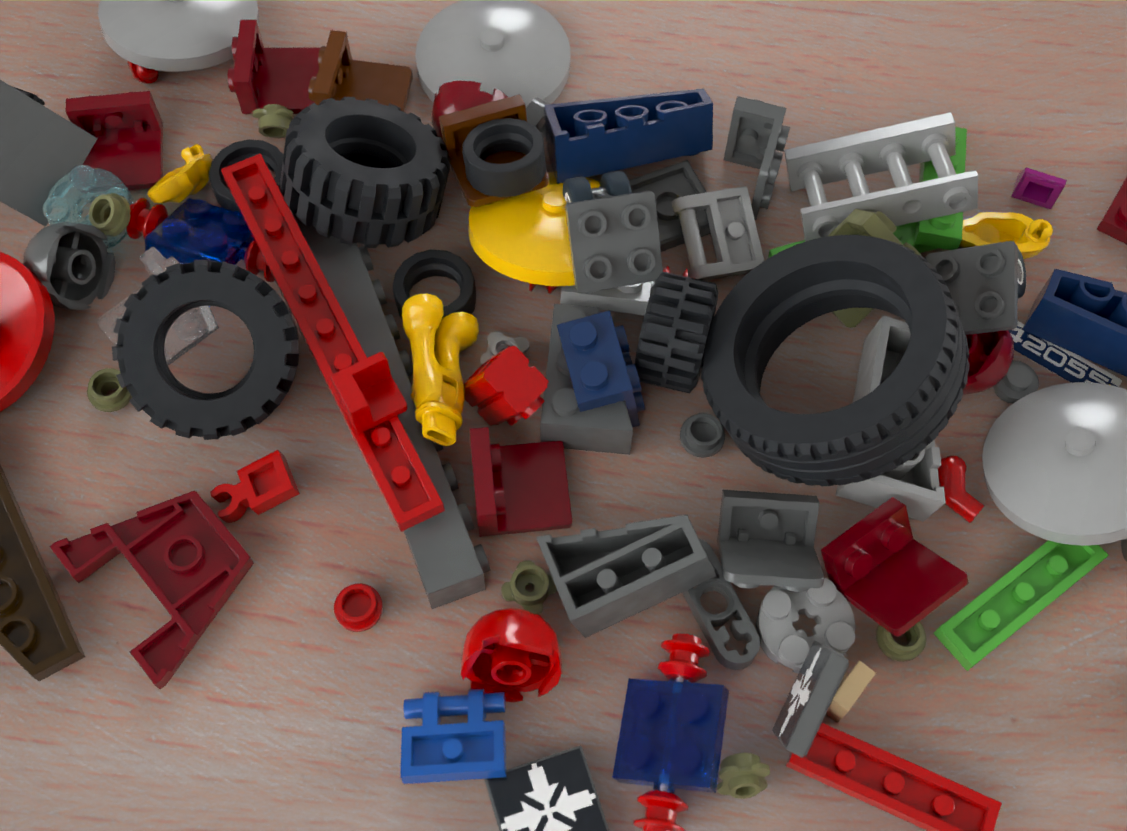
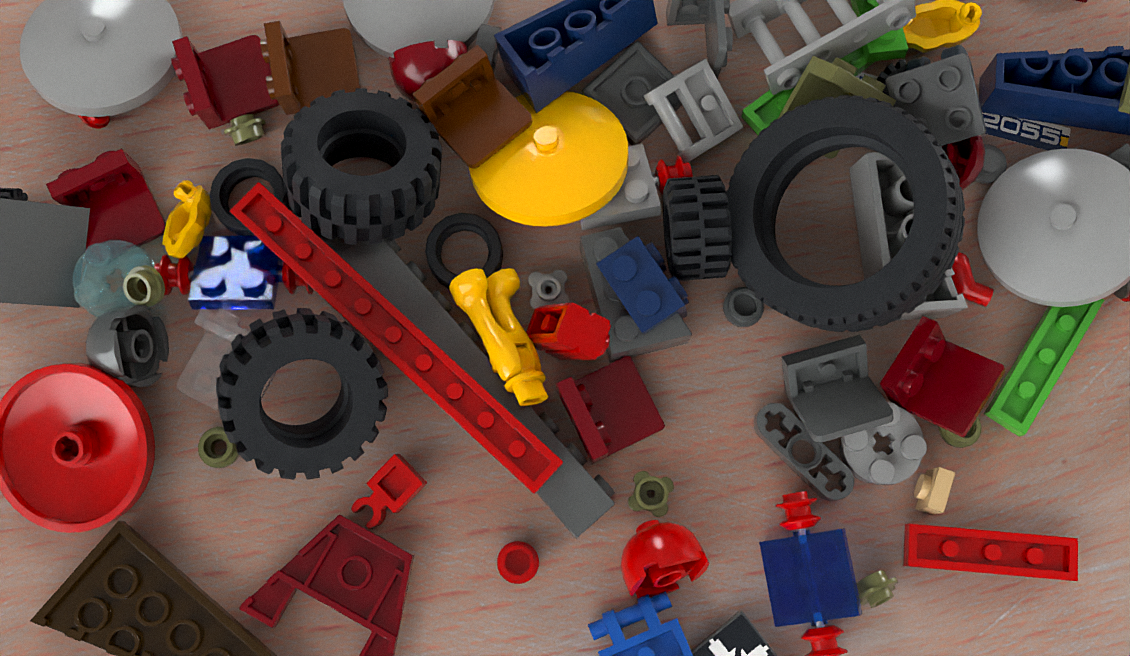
camera: 20 degrees left, 15 degrees up
(368, 392) = (464, 389): red panel -> none
(507, 178) = (474, 89): black tyre -> none
(611, 233) = (609, 155): dark grey plate -> none
(624, 569) = (727, 459): dark grey wedge -> none
(810, 698) = (913, 516): tile -> none

